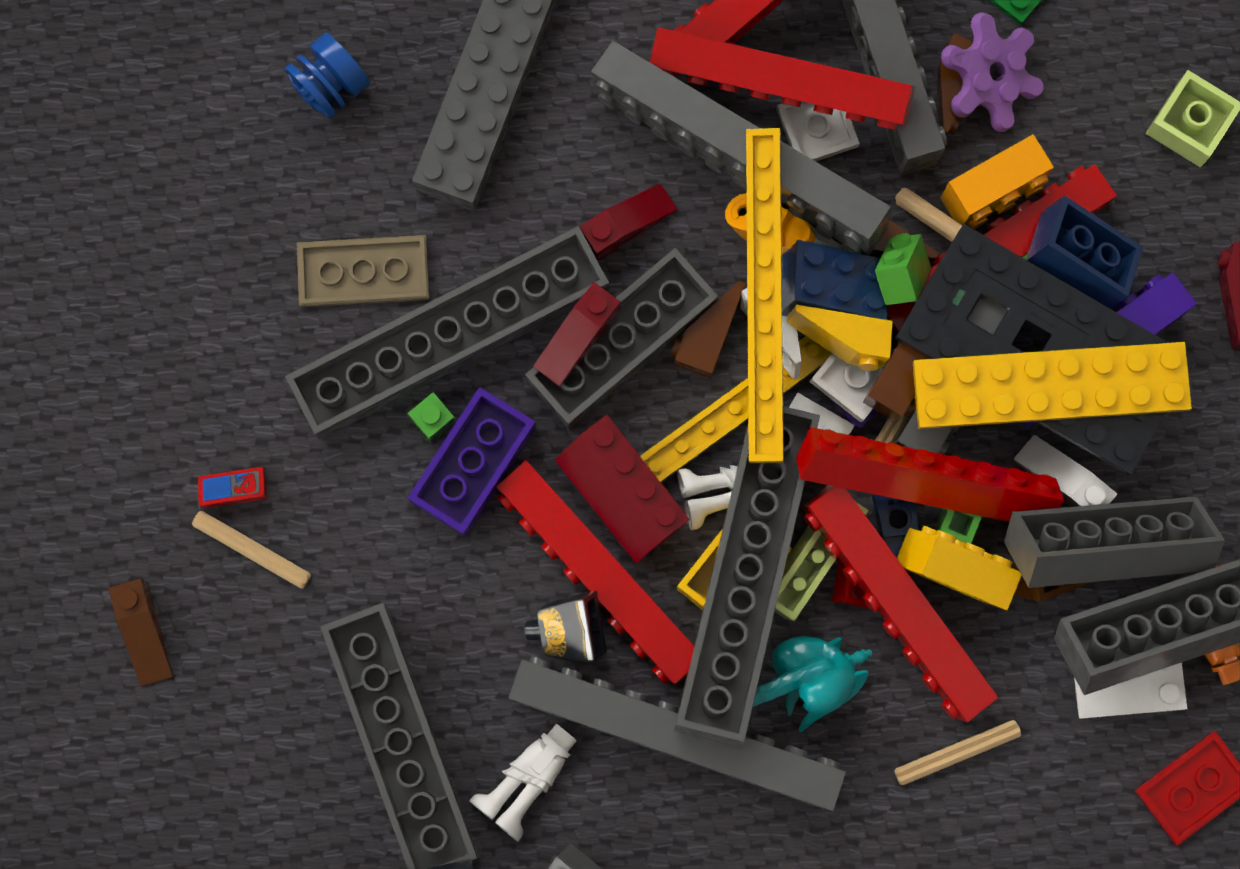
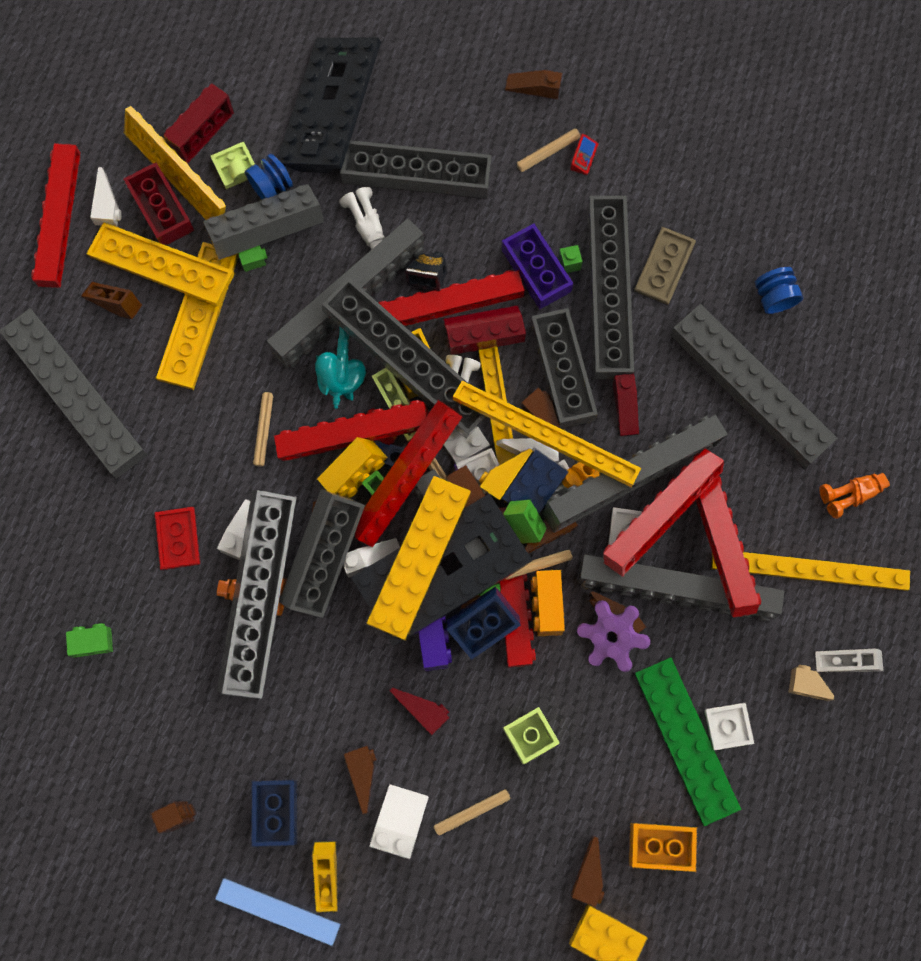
camera: 115 degrees right, 5 degrees down
(578, 333) = (576, 341): dark red slope -> none

